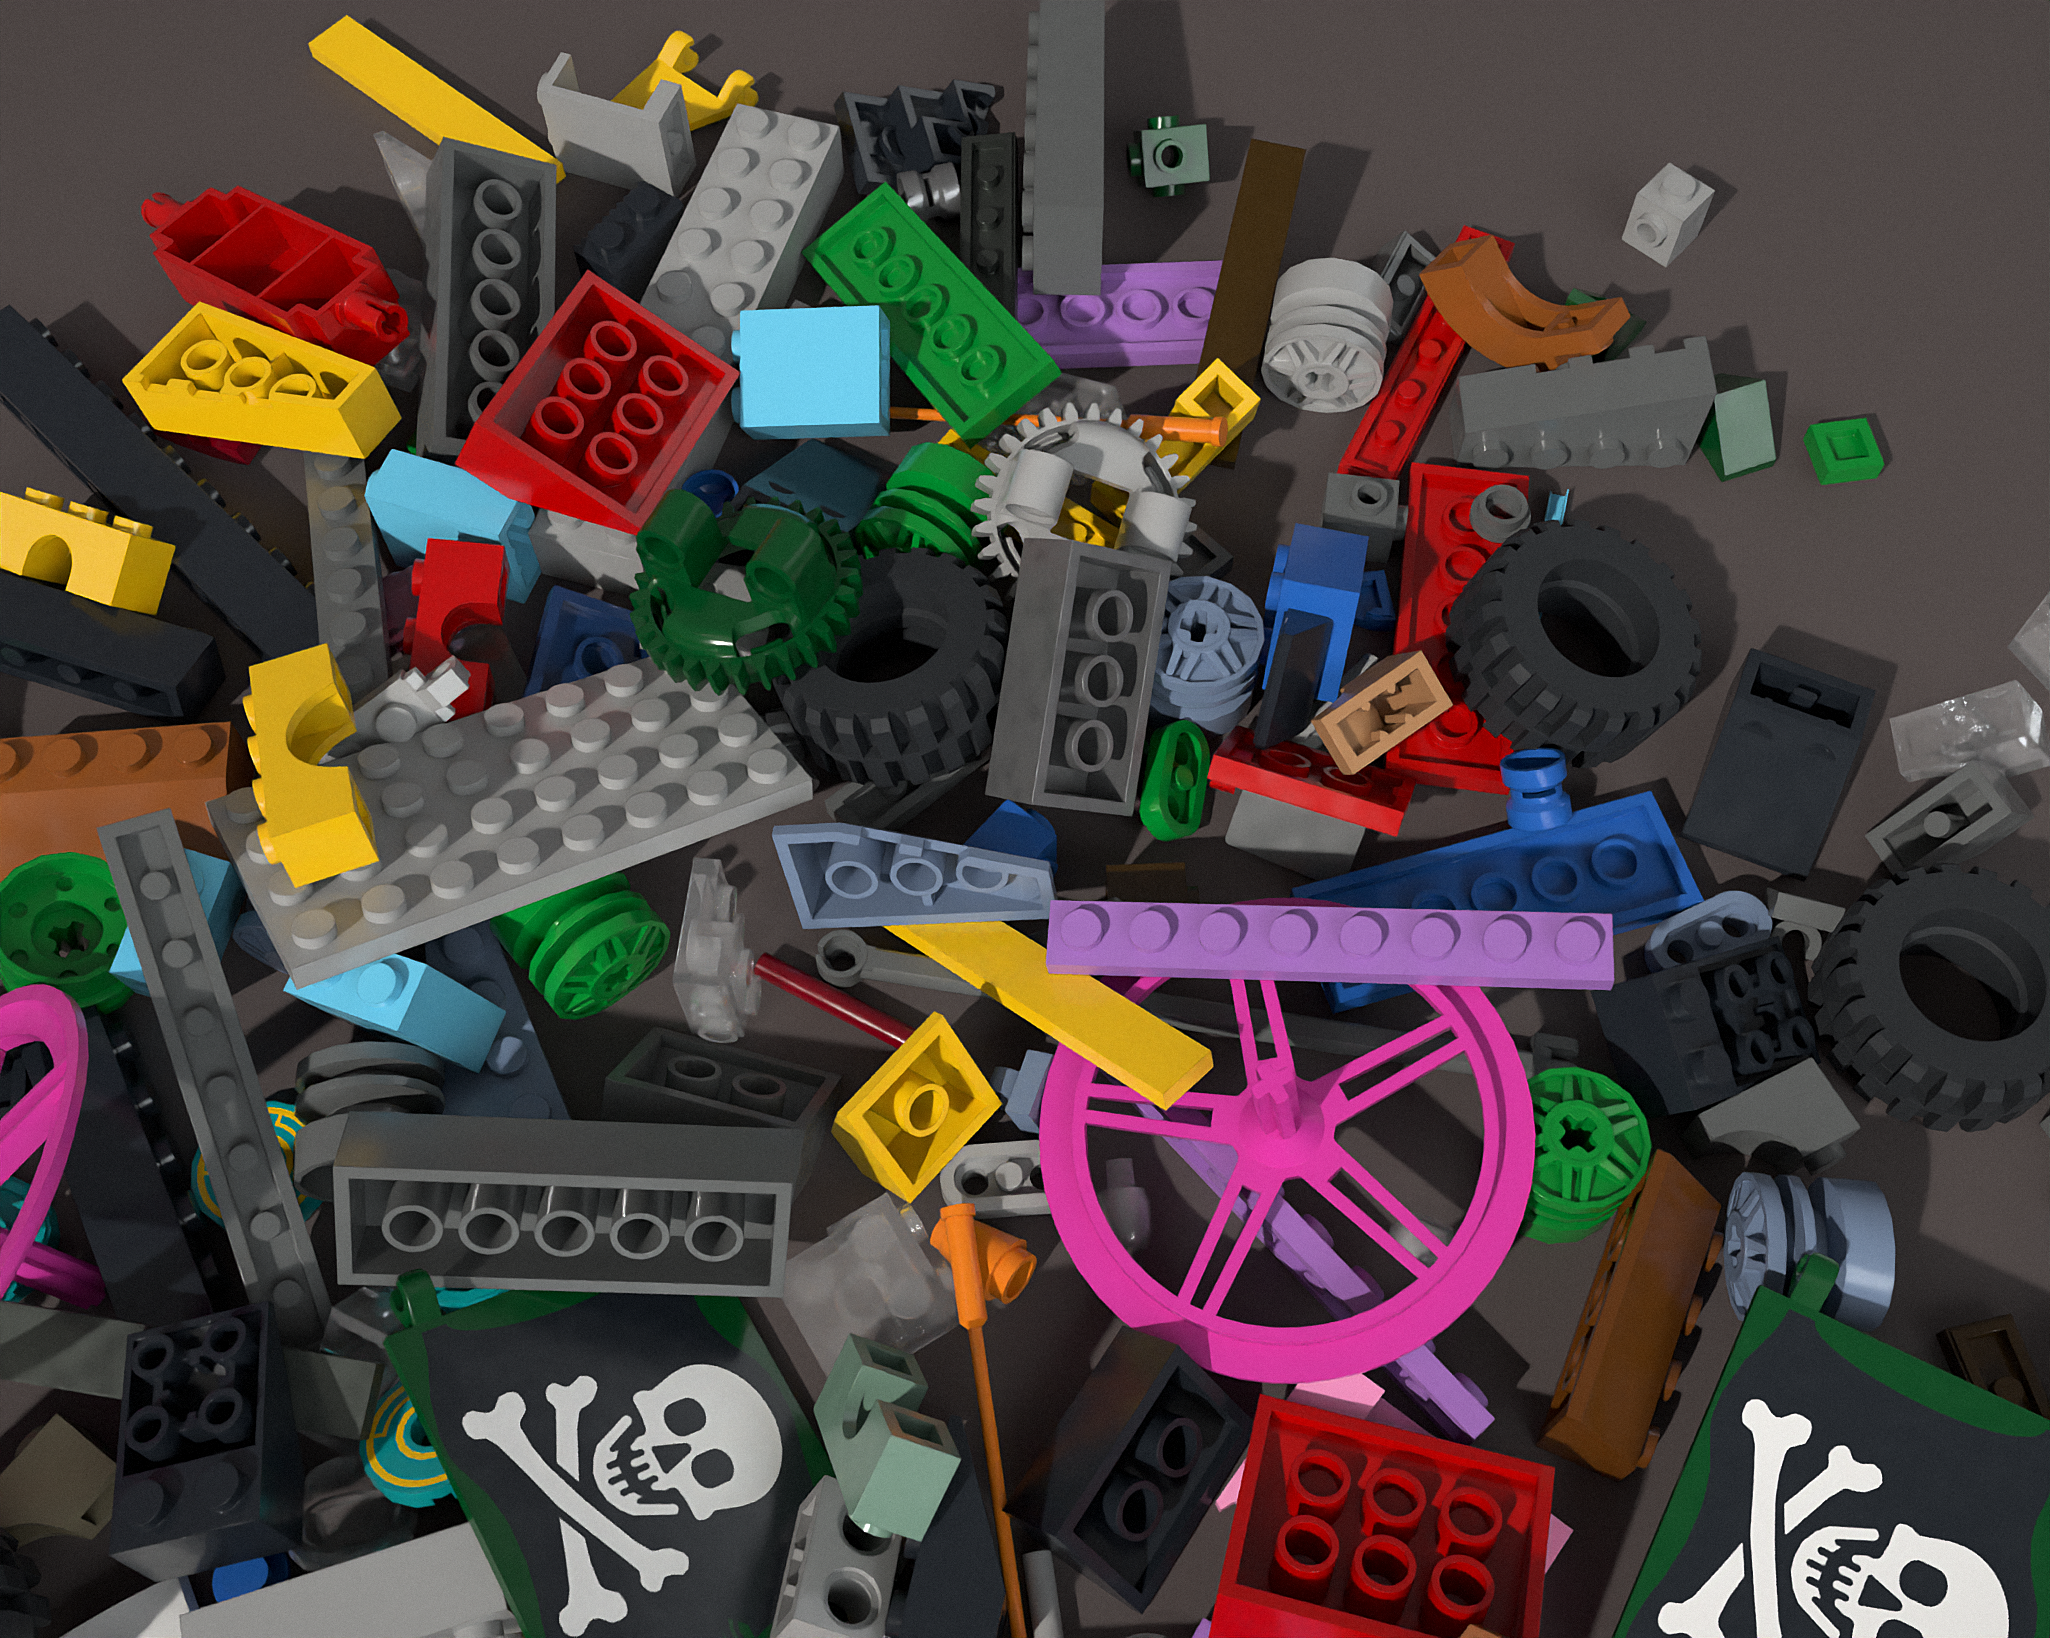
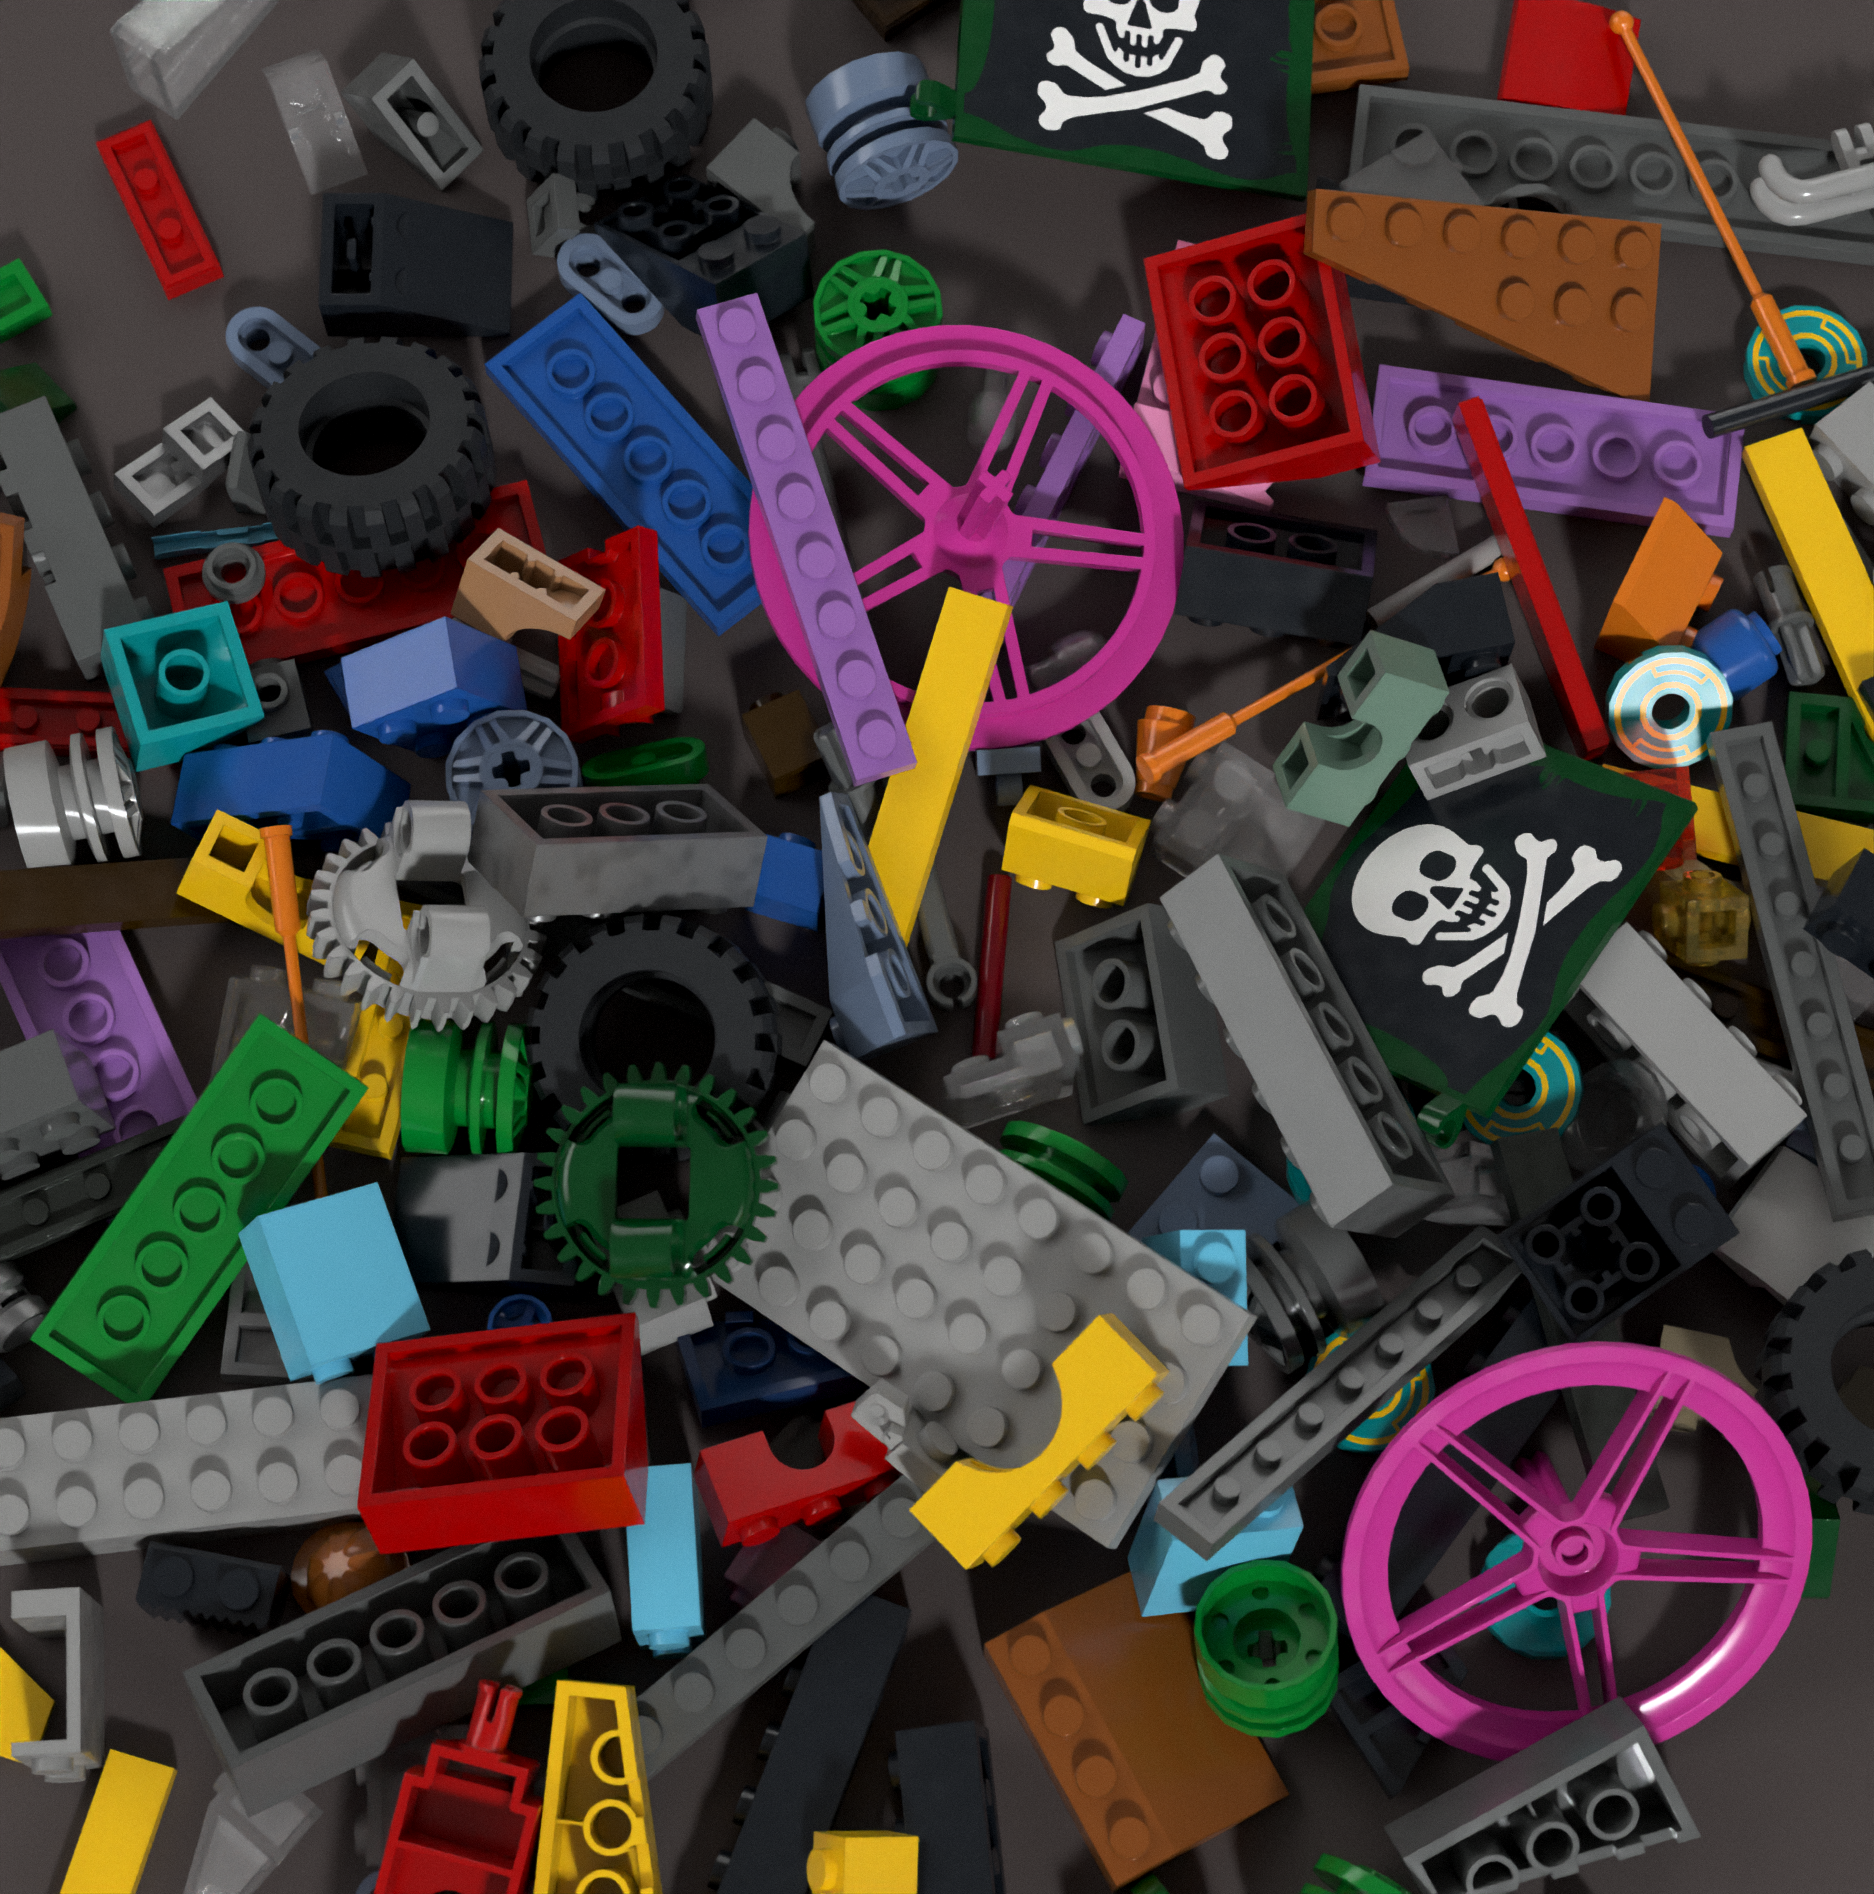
camera: 115 degrees left, 10 degrees up
(1259, 487) = (304, 782): none -> blue wedge
(1292, 677) = (528, 679): black slope -> none
(1403, 424) = (179, 683): none -> teal slope
(1536, 789) = (534, 450): blue wheel -> none
(1628, 508) = (184, 464): none -> flat silver slope
(1632, 1323) = (1003, 248): reddish brown slope -> none
(1723, 645) = (285, 346): none -> sand blue plate
(1910, 598) = (159, 209): none -> red tile

